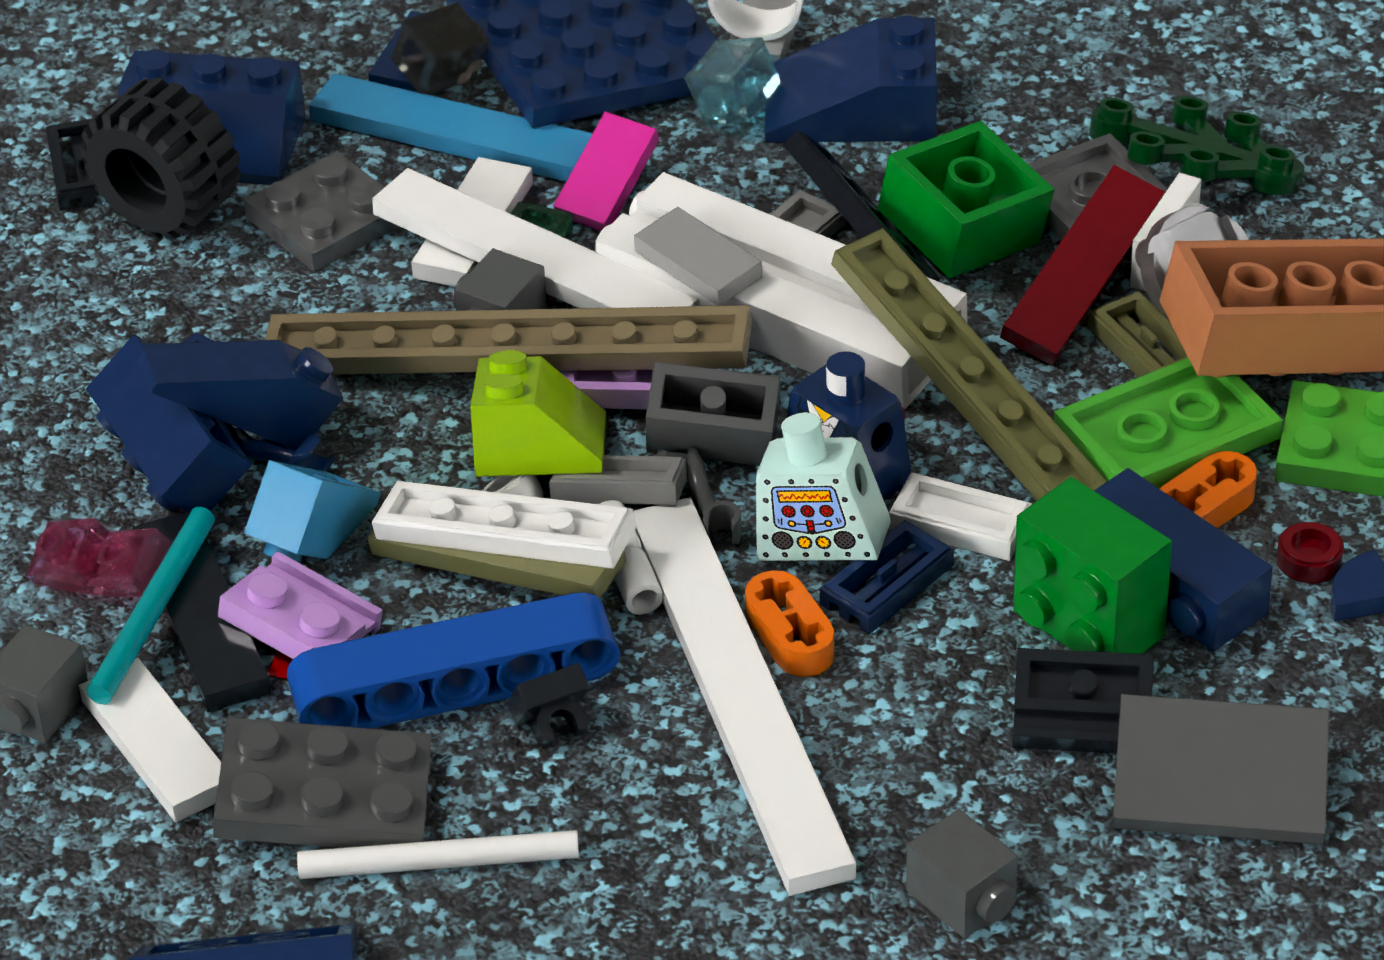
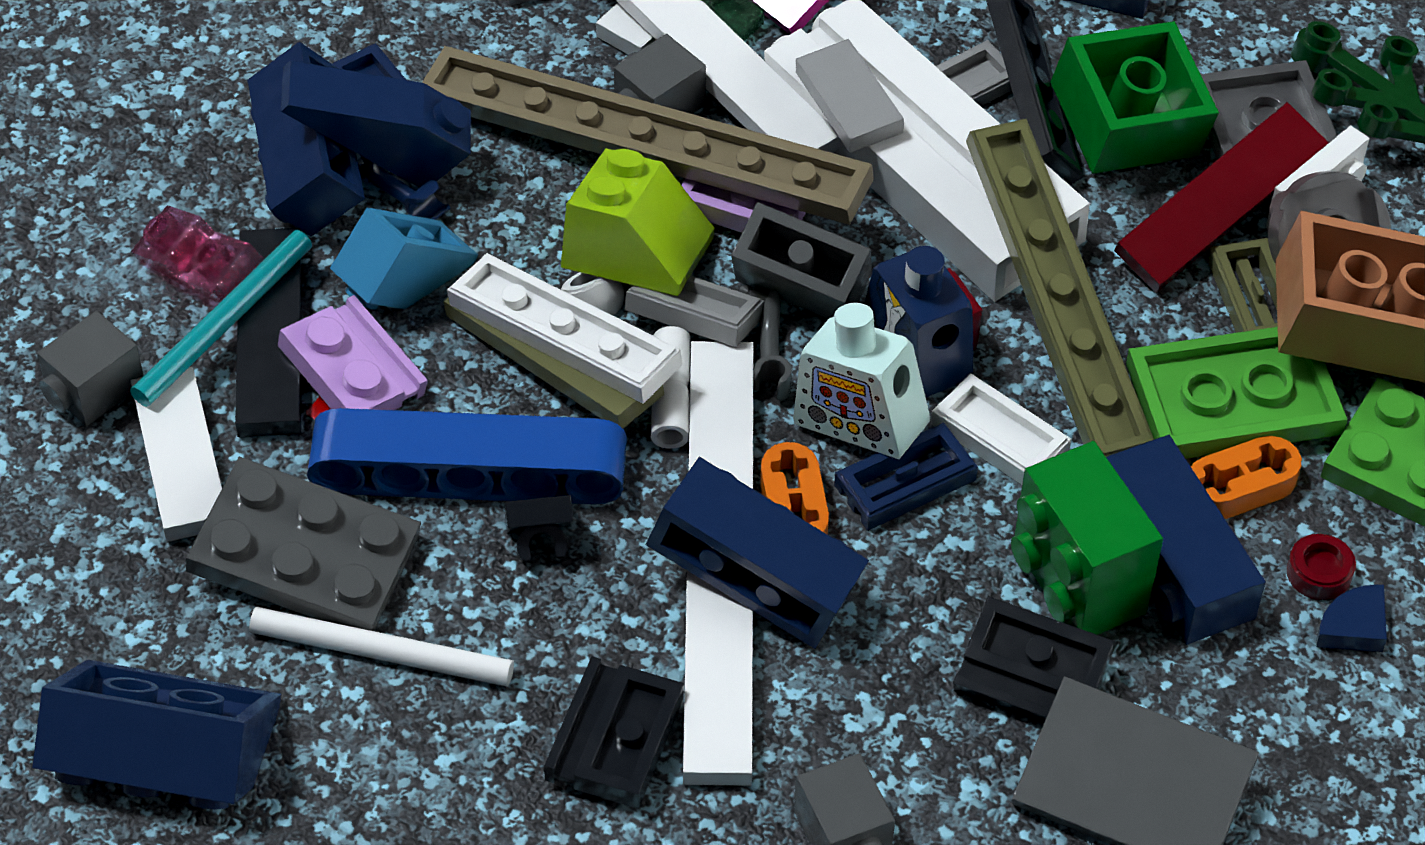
camera: 15 degrees right, 10 degrees up
(706, 863) = (614, 732): none -> black plate
(782, 667) = (756, 552): none -> dark blue brick

